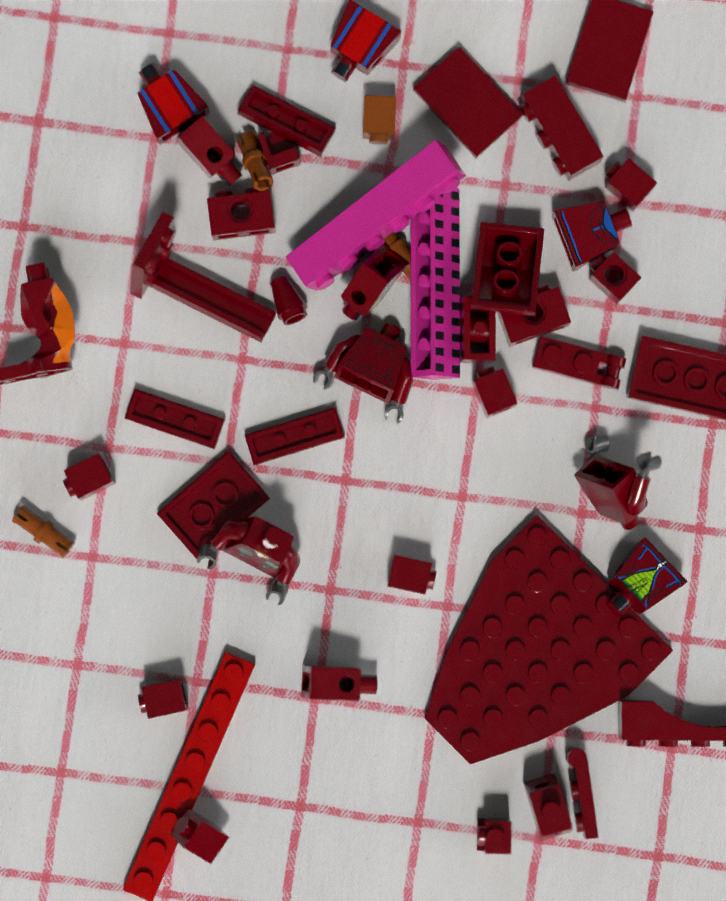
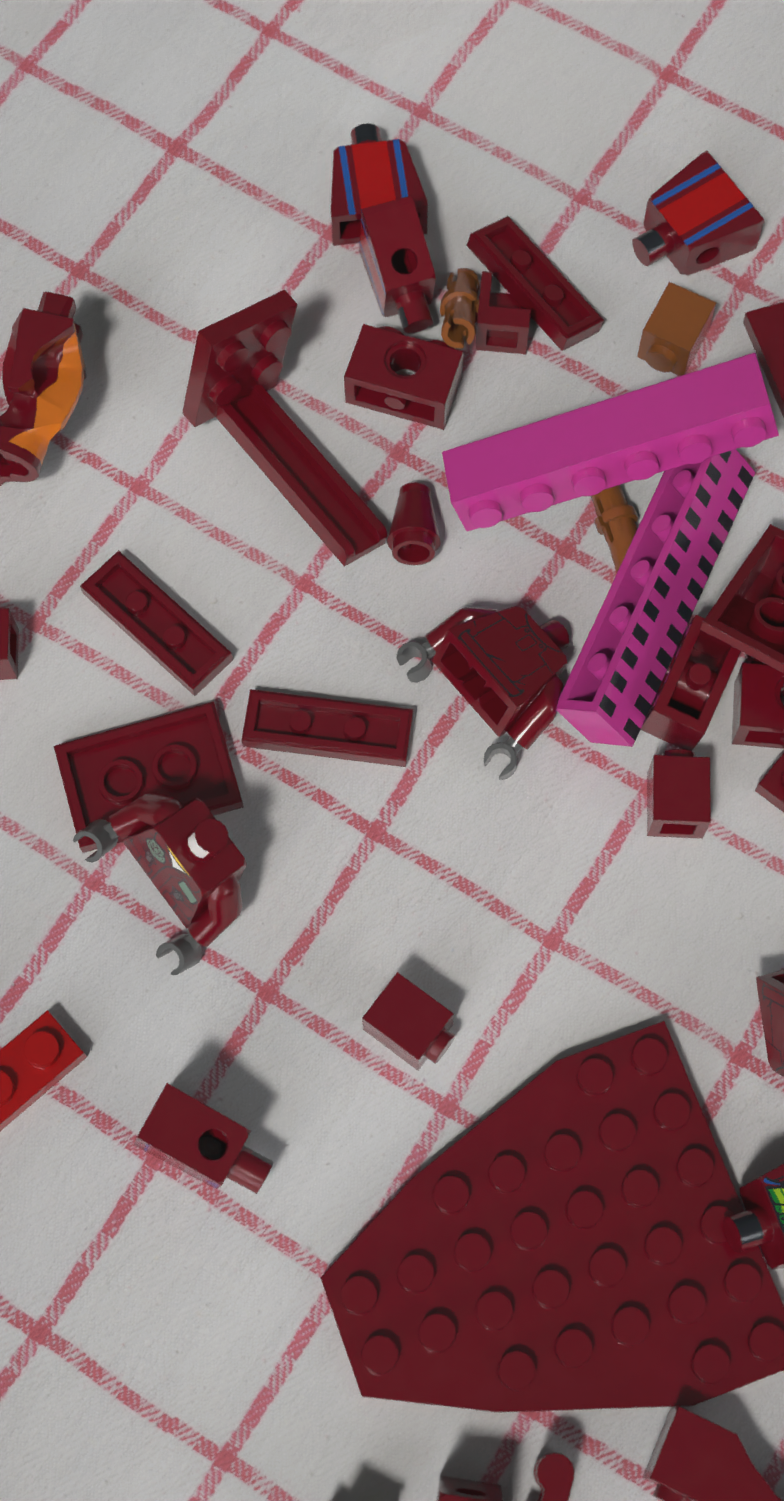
camera: 25 degrees right, 15 degrees down
(372, 282) = (557, 543): dark red torso -> none

